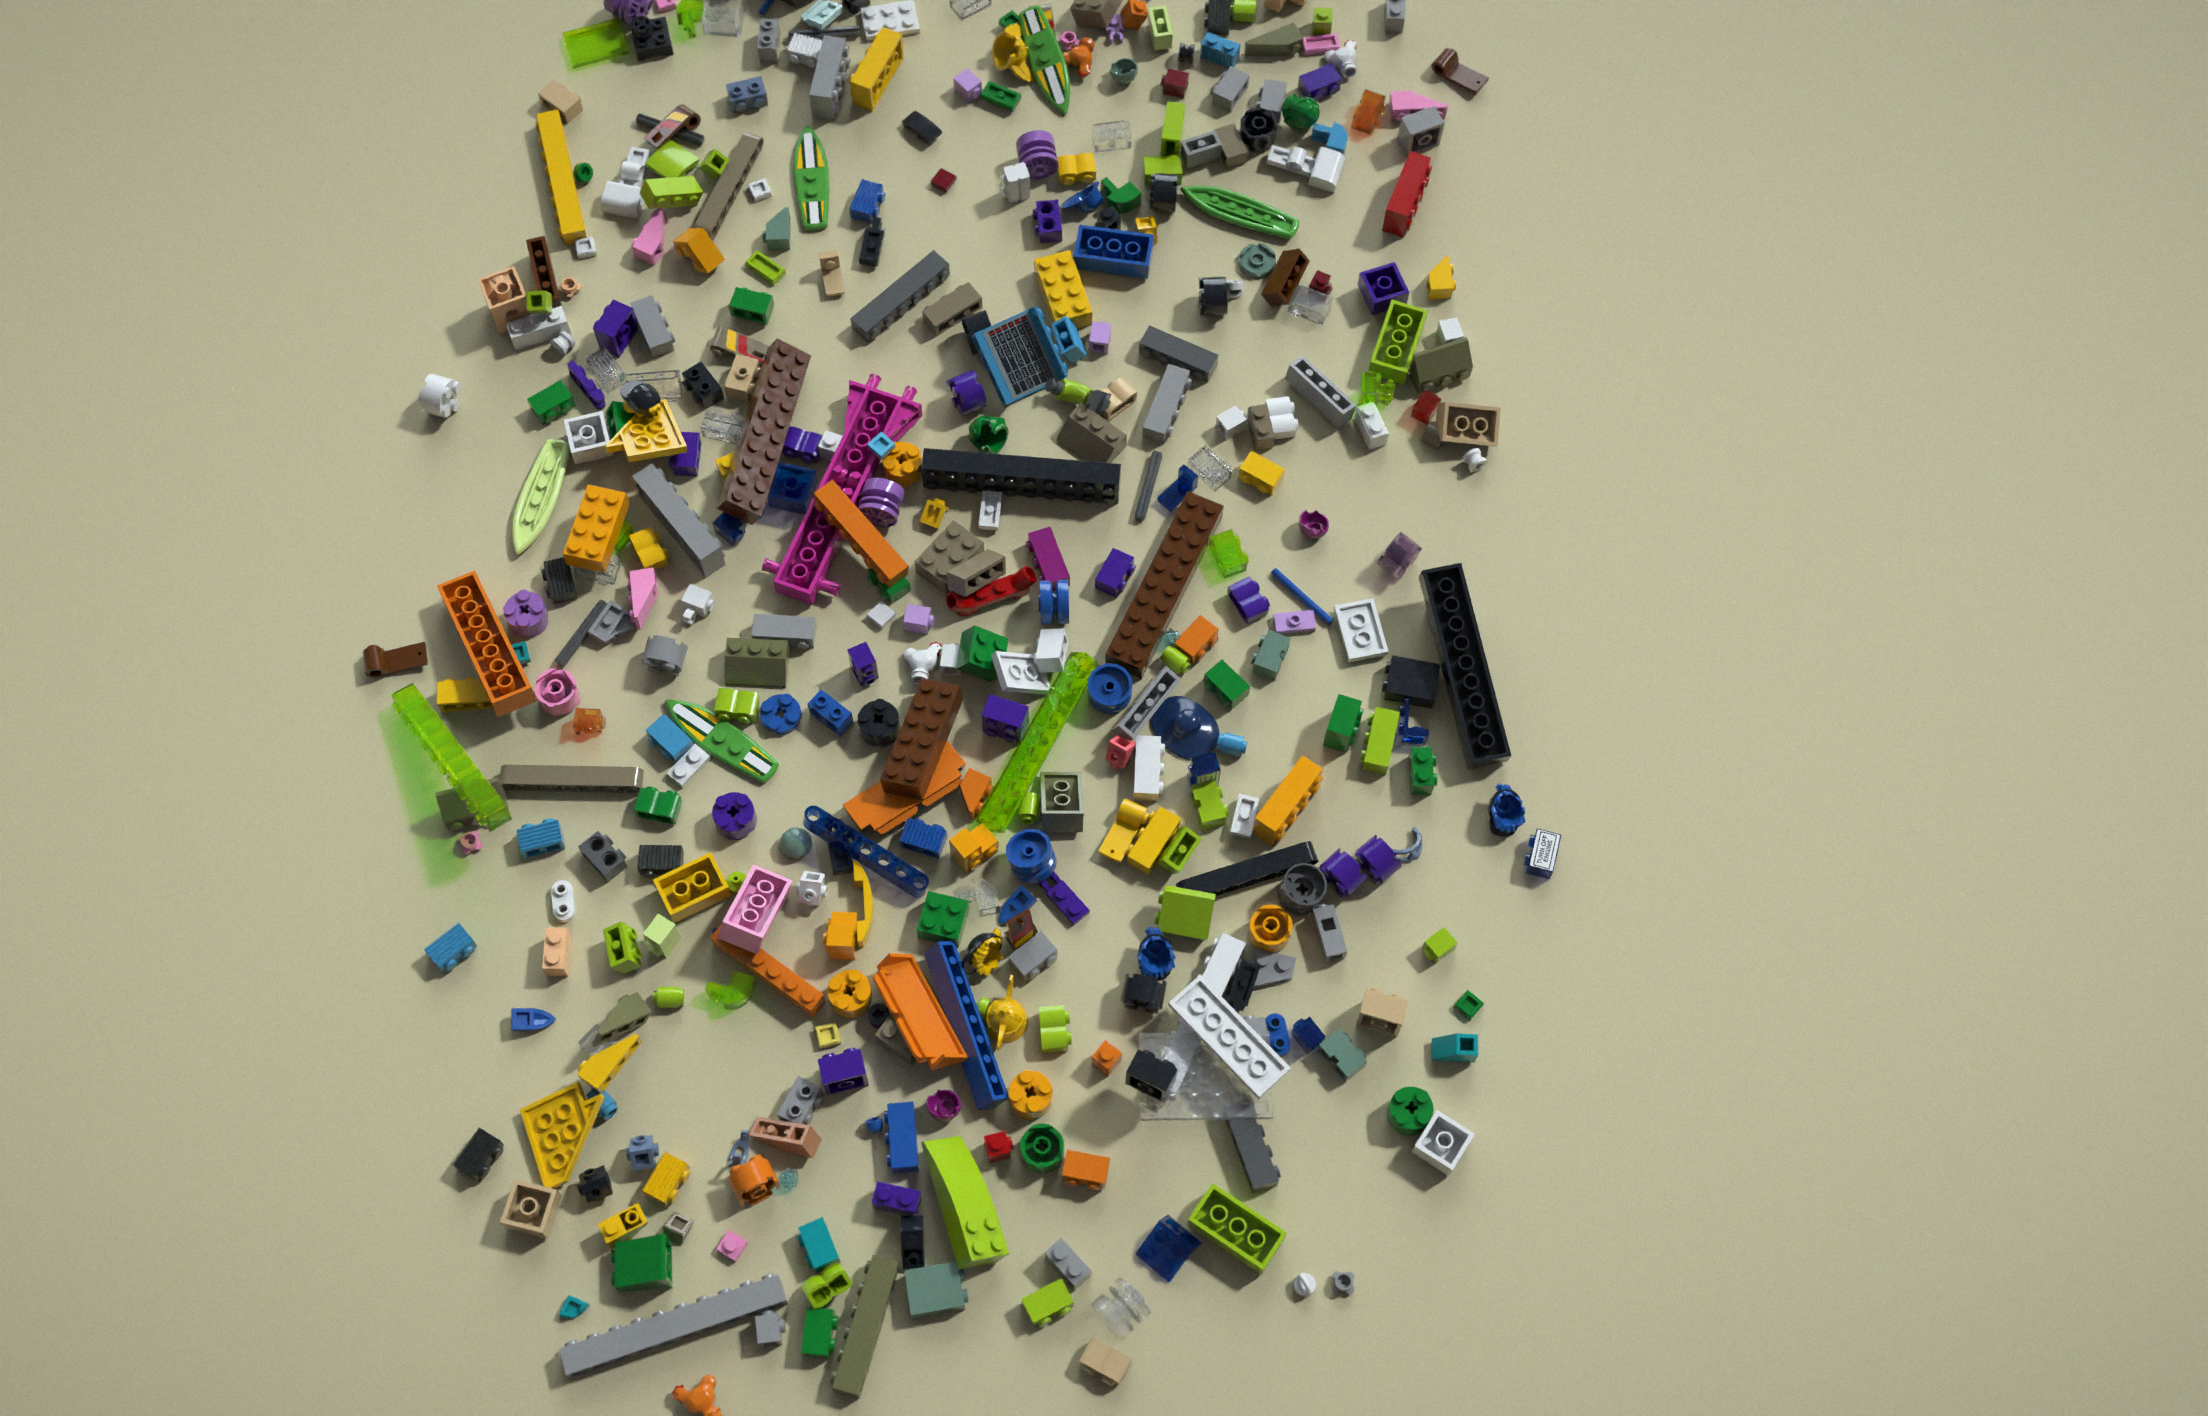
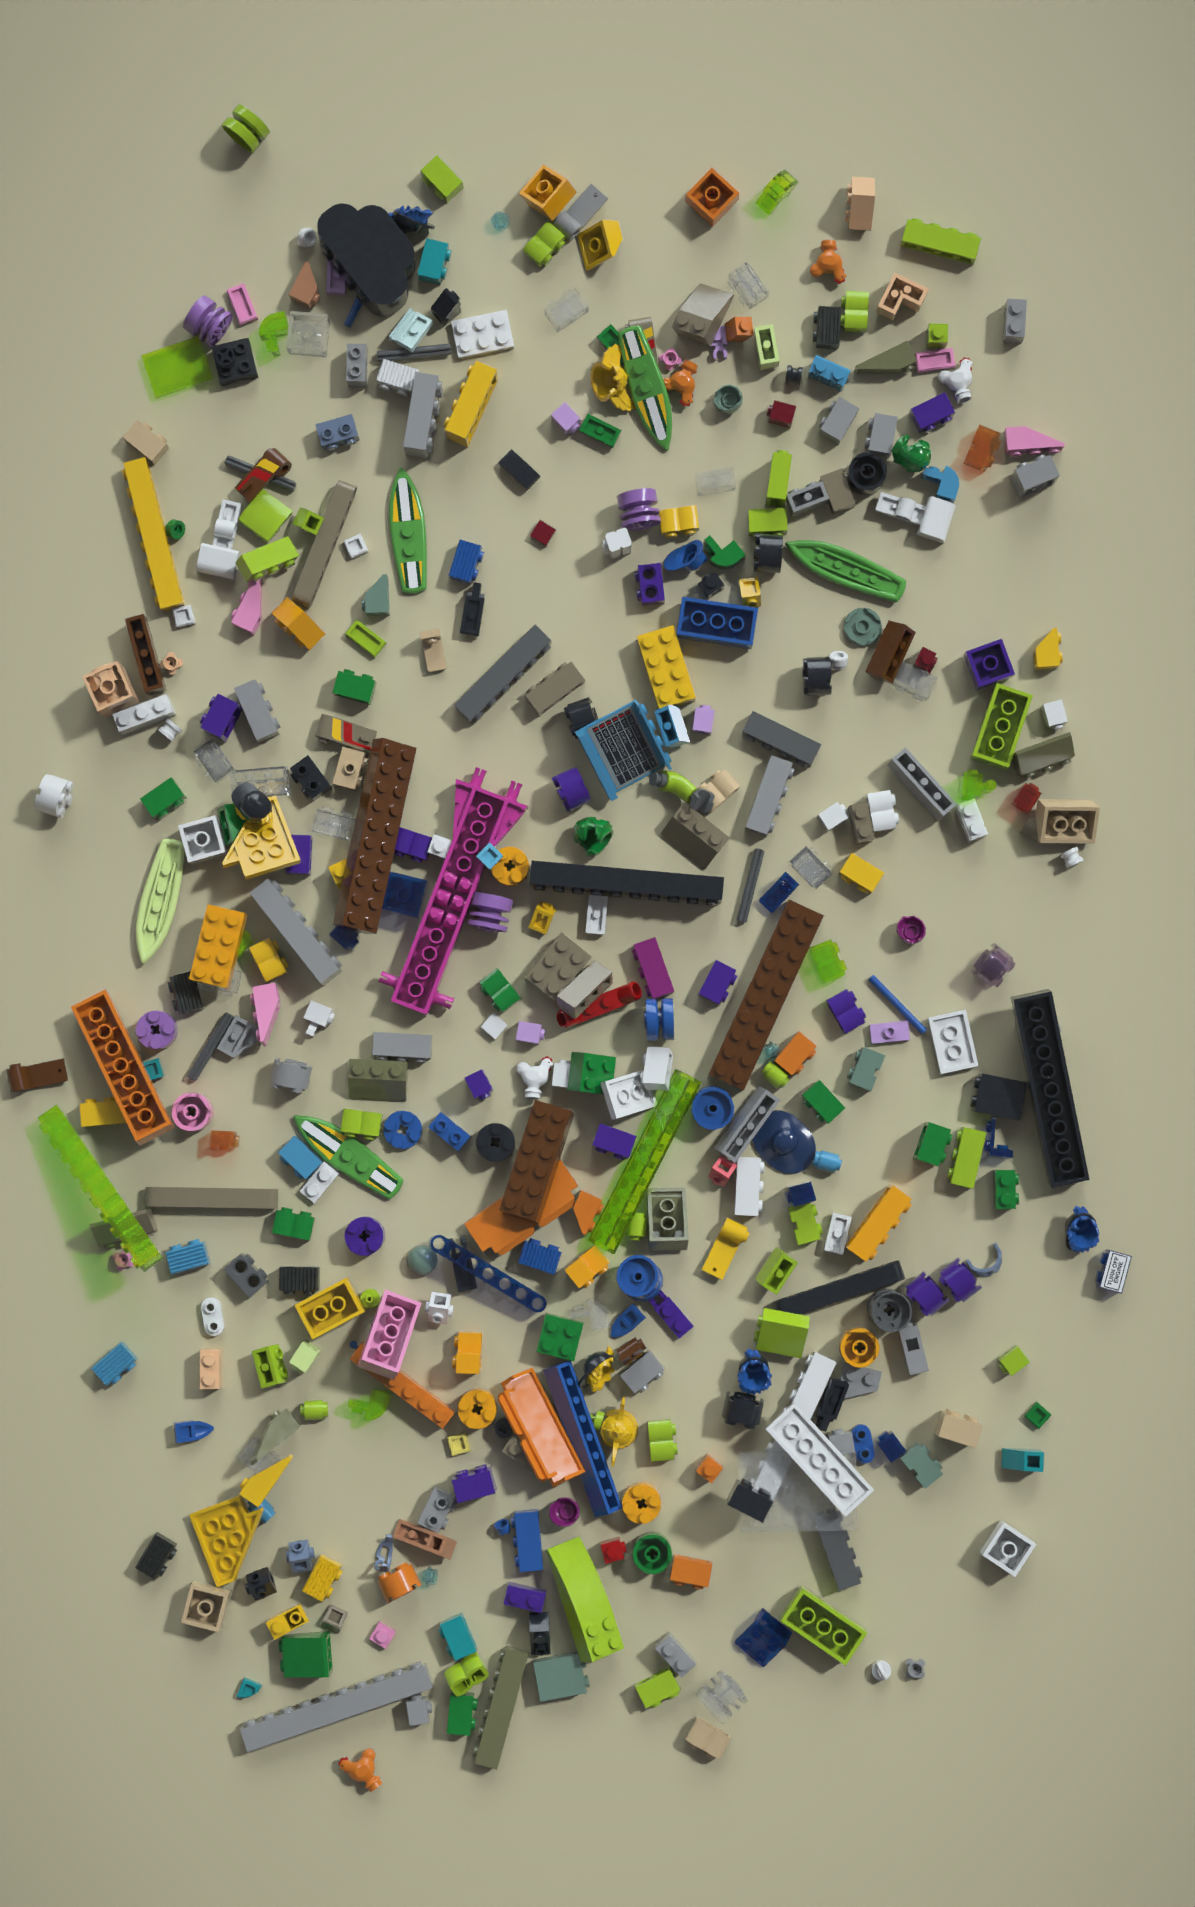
camera: 10 degrees right, 20 degrees up
(539, 302) = (144, 698): lime brick -> none
(587, 386) = (197, 779): dark purple hinge -> none
(860, 533) = (475, 955): orange brick -> none
(864, 927) = (483, 1296): yellow slope -> none
(1153, 840) = (752, 1258): yellow brick -> none
(1400, 1117) = (988, 1525): green brick -> none
(1407, 194) = (1017, 553): red brick -> none
(1448, 67) = (1078, 397): door -> none

